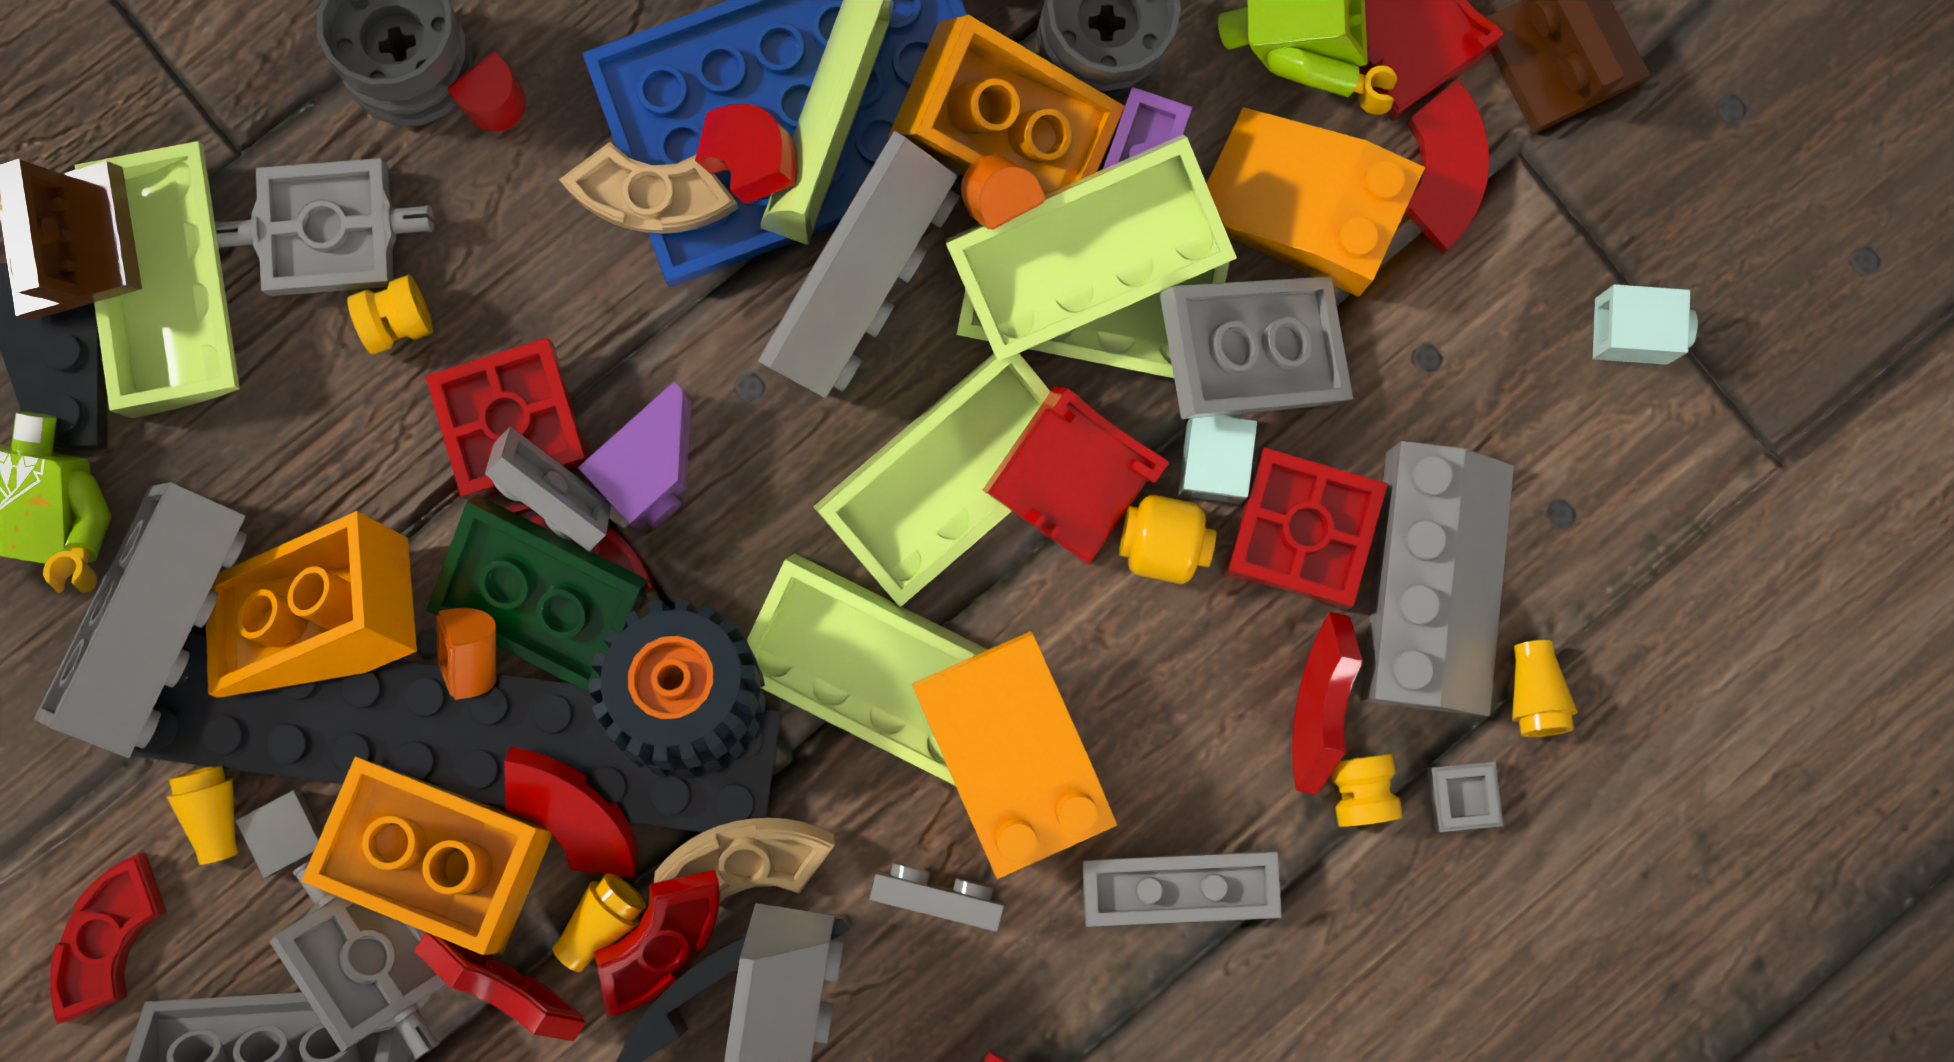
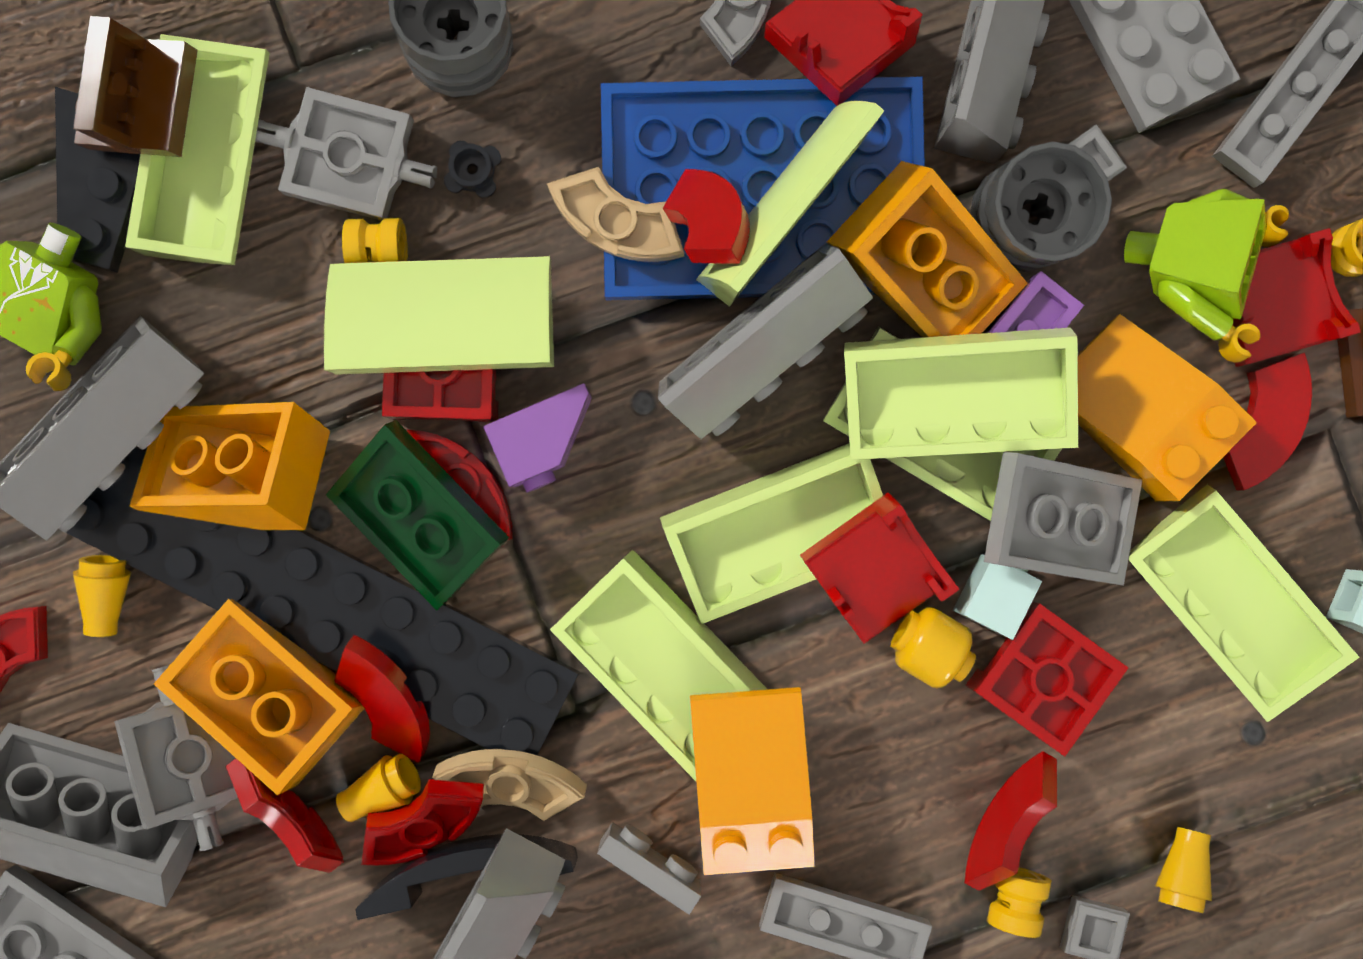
camera: 25 degrees right, 5 degrees up
(280, 833) = (155, 630): light grey tile -> none
(460, 181) = (461, 158): none -> black plate
(466, 651) = (345, 542): orange brick -> none
(488, 363) = (439, 315): none -> yellowish green slope
(490, 94) = (514, 91): red brick -> none
(548, 488) = (452, 437): light grey plate -> none
(677, 689) = (502, 635): black wheel -> none
(999, 191) = (903, 324): orange brick -> none
(1437, 579) = (1135, 755): light grey slope -> none
(1489, 375) = (1240, 603): none -> yellowish green slope

